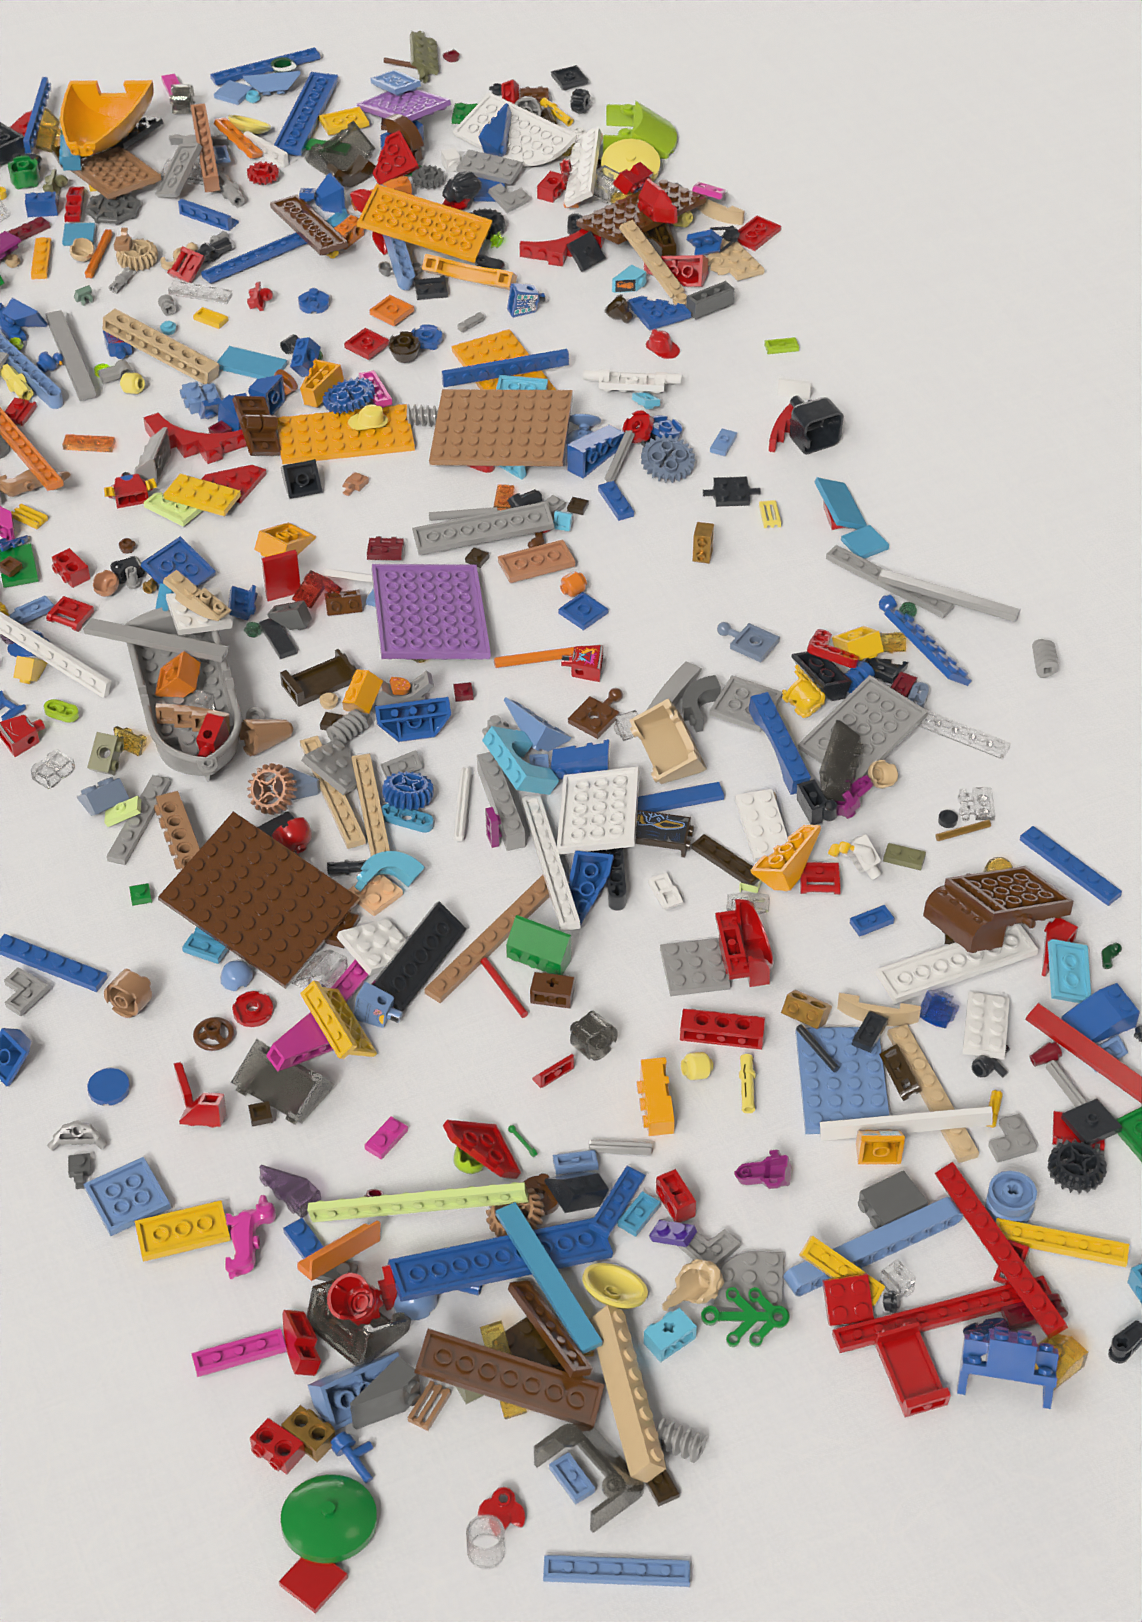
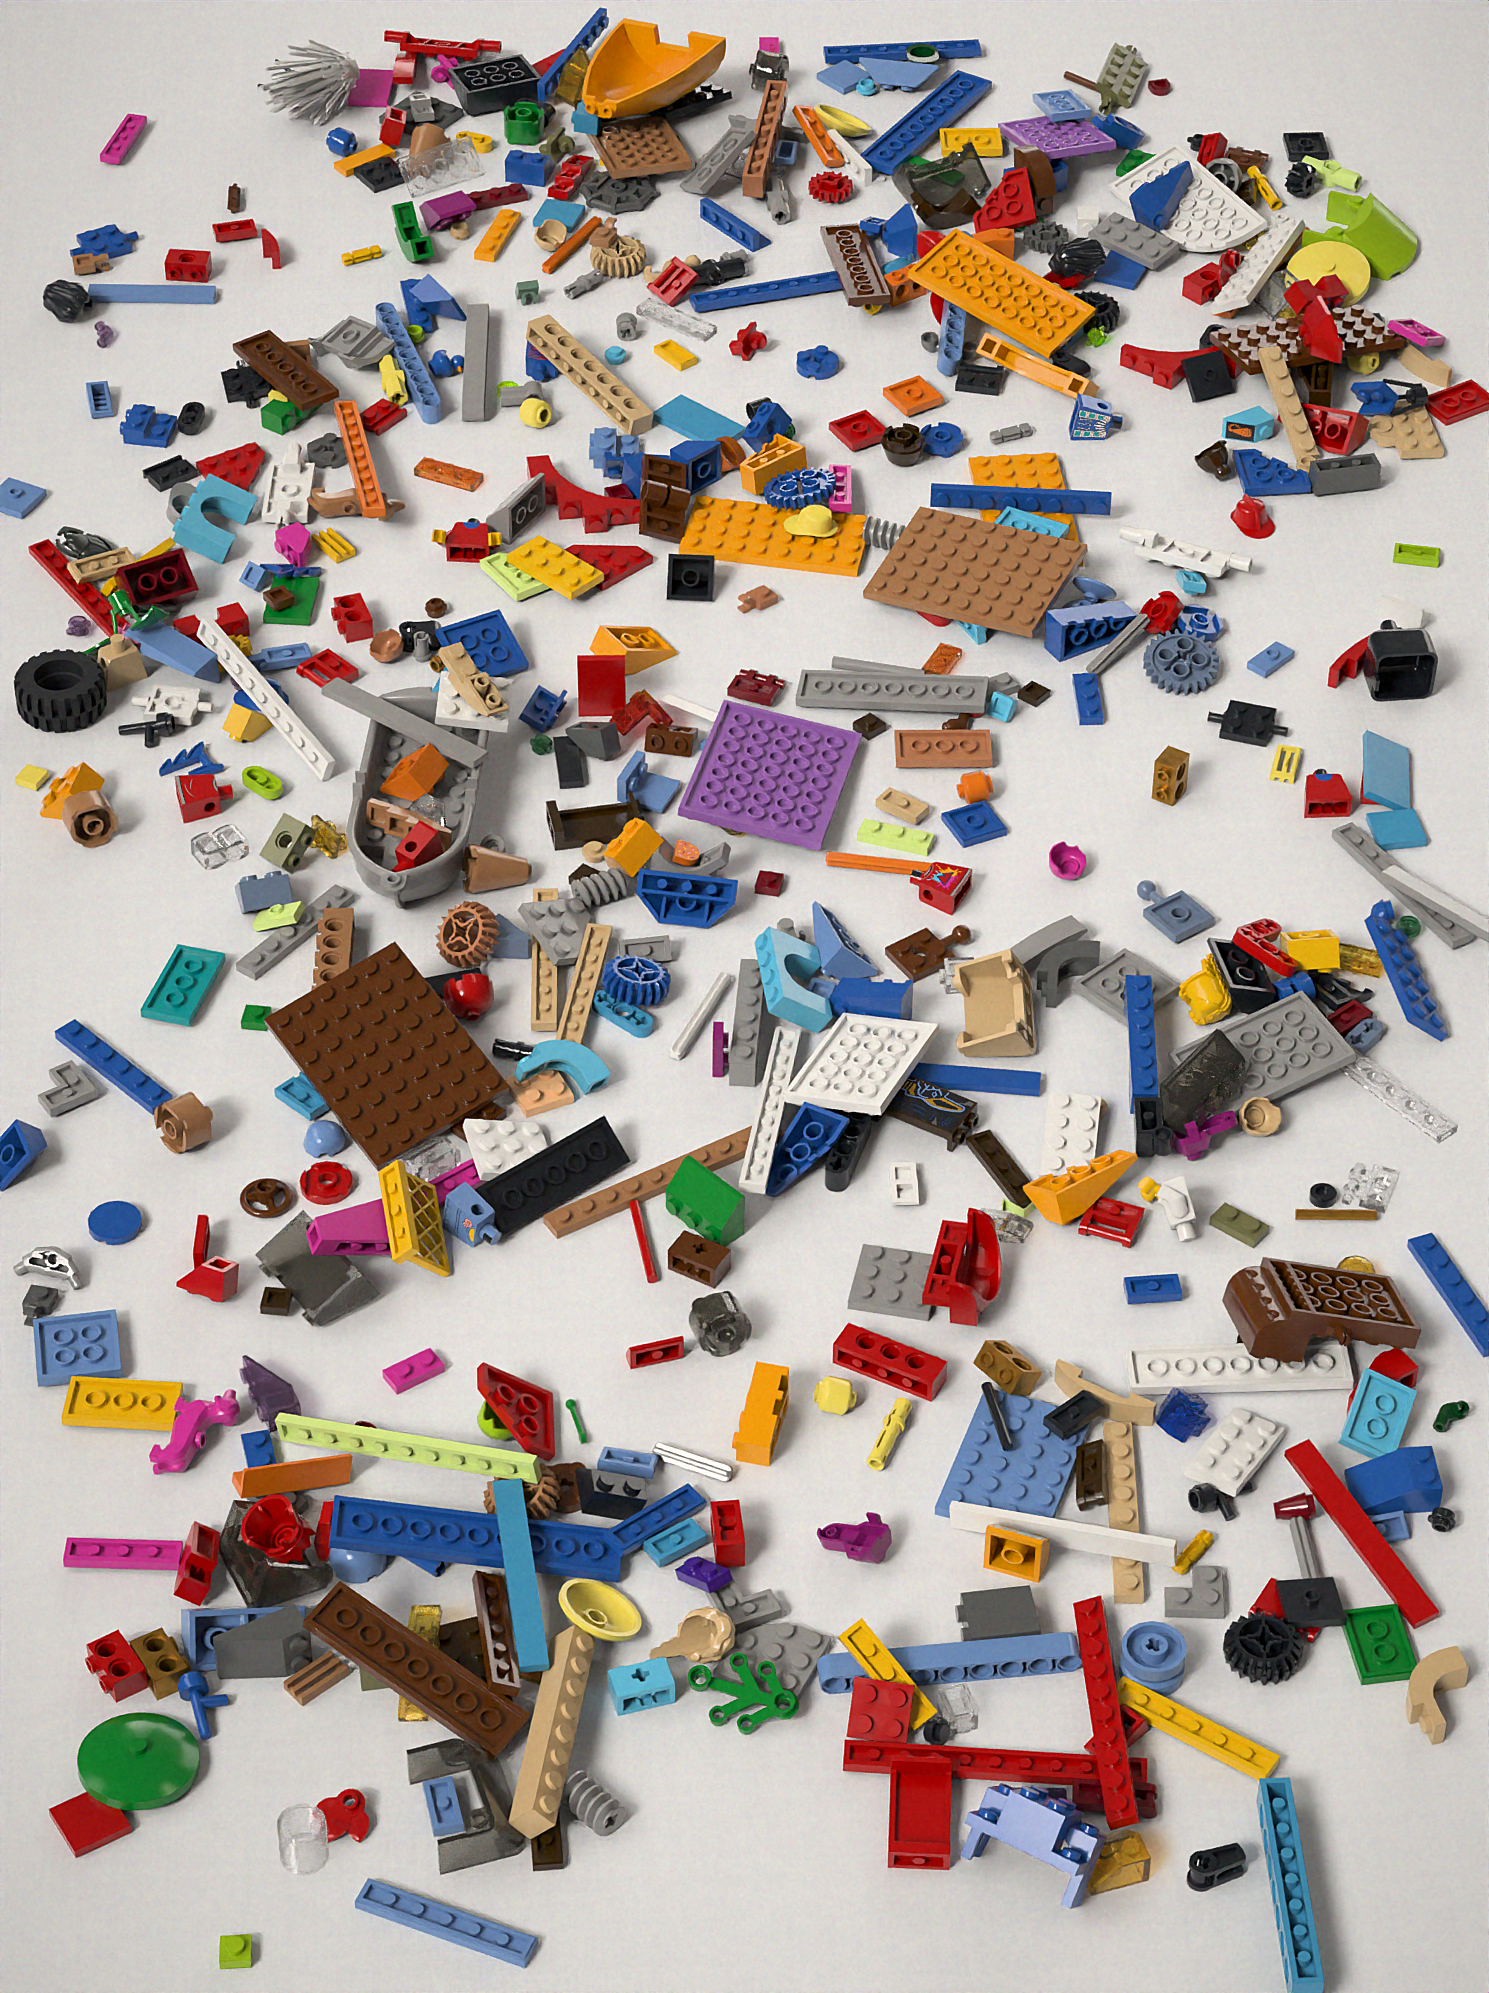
camera: 20 degrees right, 5 degrees down
(74, 884) = (183, 985): none -> teal plate
(347, 642) = (651, 789): none -> medium blue bracket
(443, 90) = (1120, 130): none -> blue piece
(507, 200) = (1140, 290): light grey plate -> none
(527, 498) = (955, 666): black piece -> none
(529, 610) = (902, 806): none -> tan plate
(534, 634) = (895, 837): none -> yellowish green plate
(598, 92) = (1334, 175): none -> yellowish green piece
(662, 622) = (1066, 861): none -> dark pink hair
(809, 530) = (1326, 796): none -> red torso

